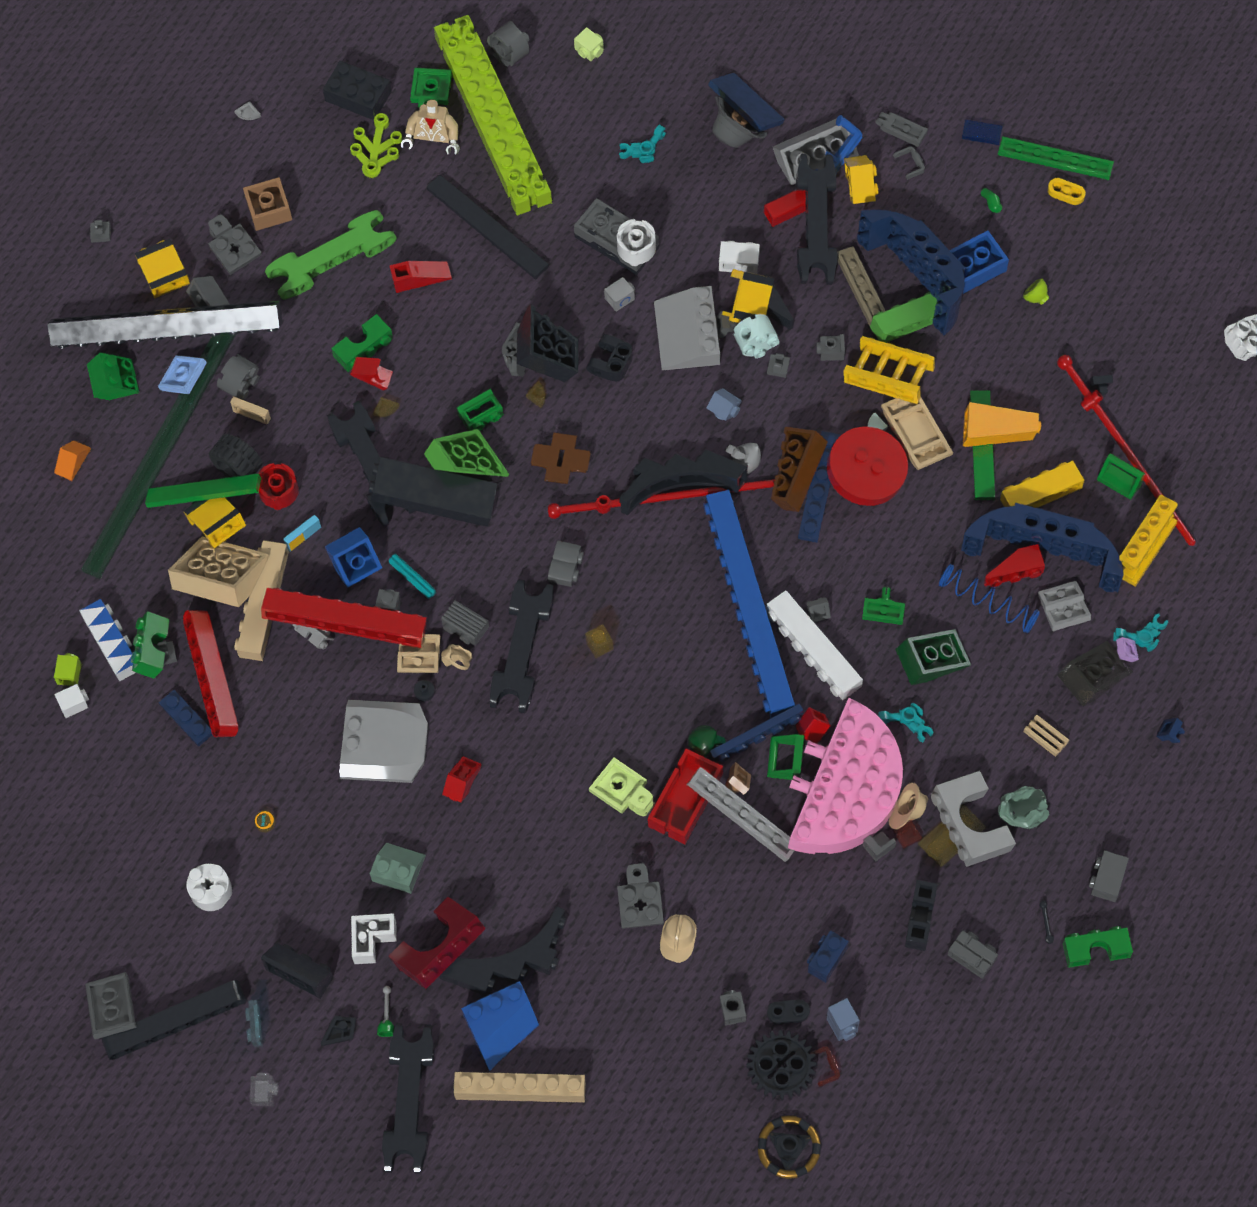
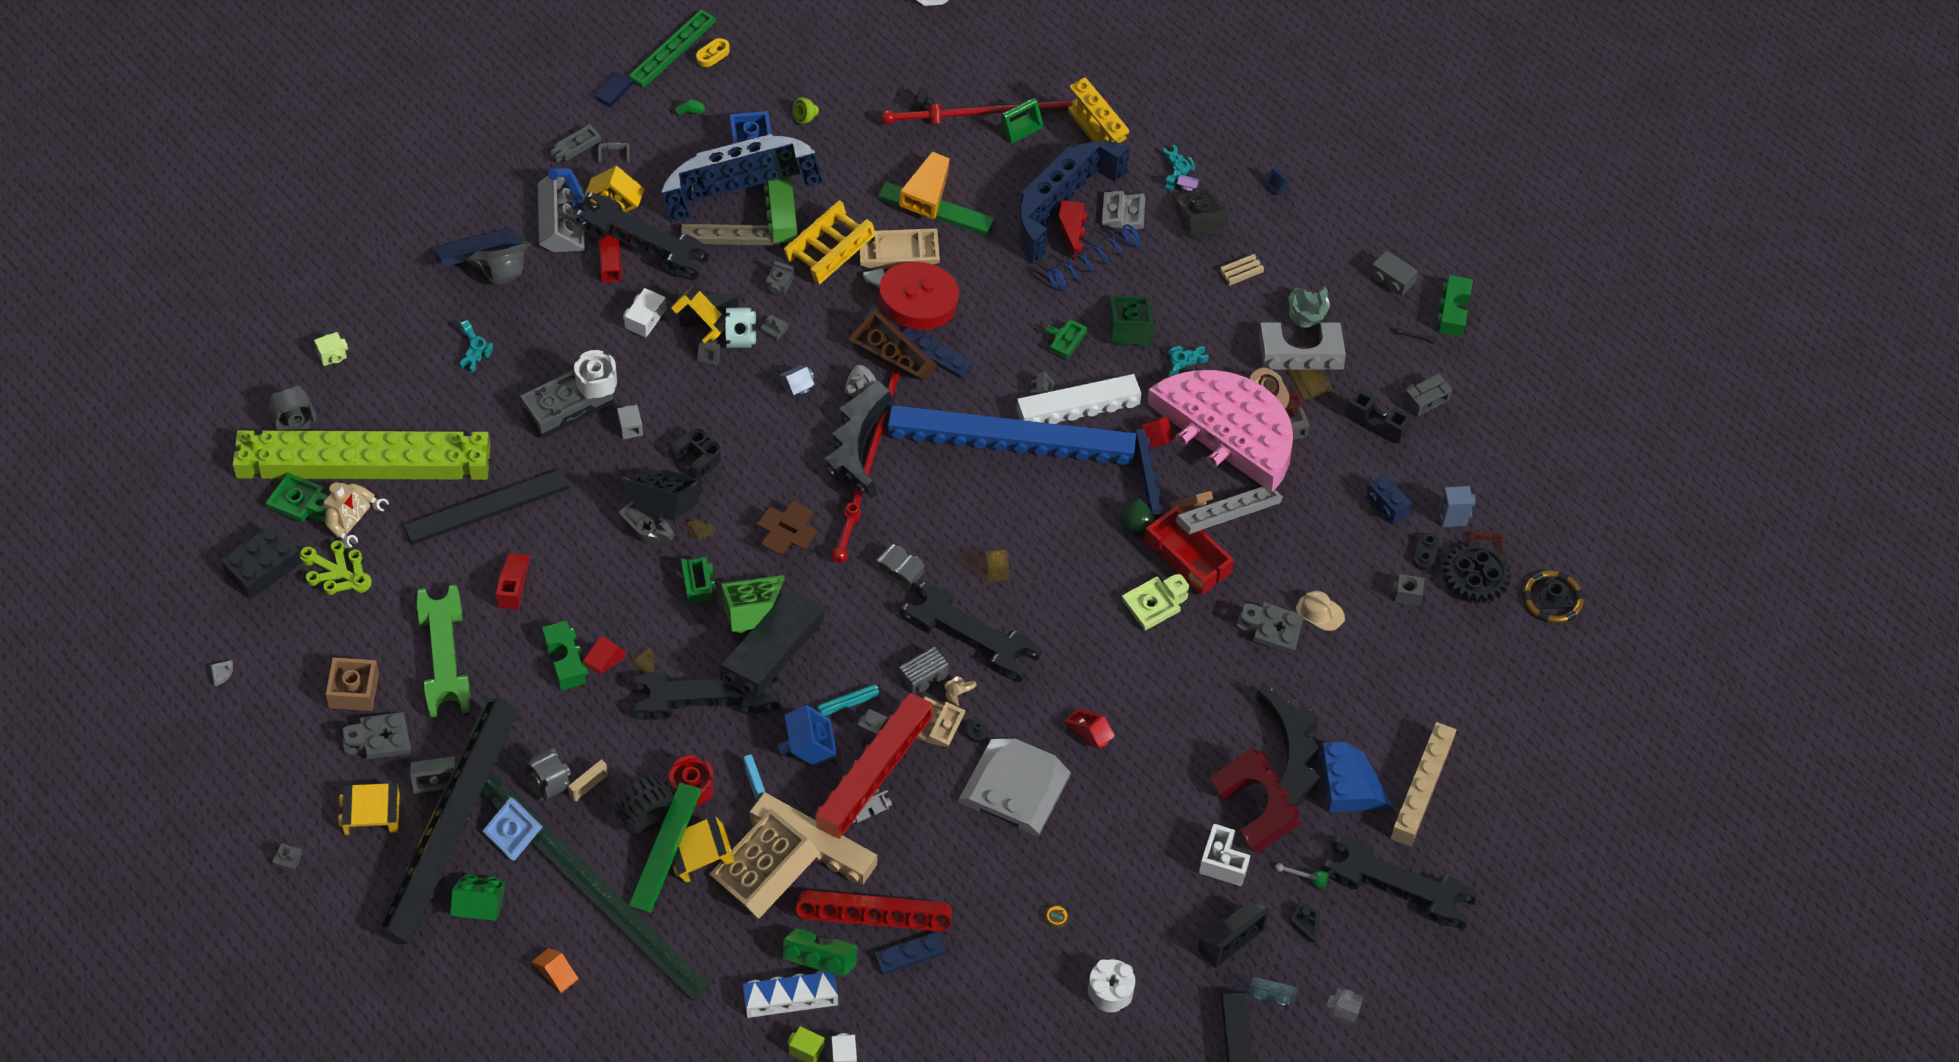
camera: 75 degrees left, 10 degrees down
(397, 867) = (1158, 813): sand green slope -> none
(687, 329) = (698, 380): light grey slope -> none
(796, 740) = (1183, 454): green tile -> none
(1044, 487) = (1005, 181): yellow brick -> none

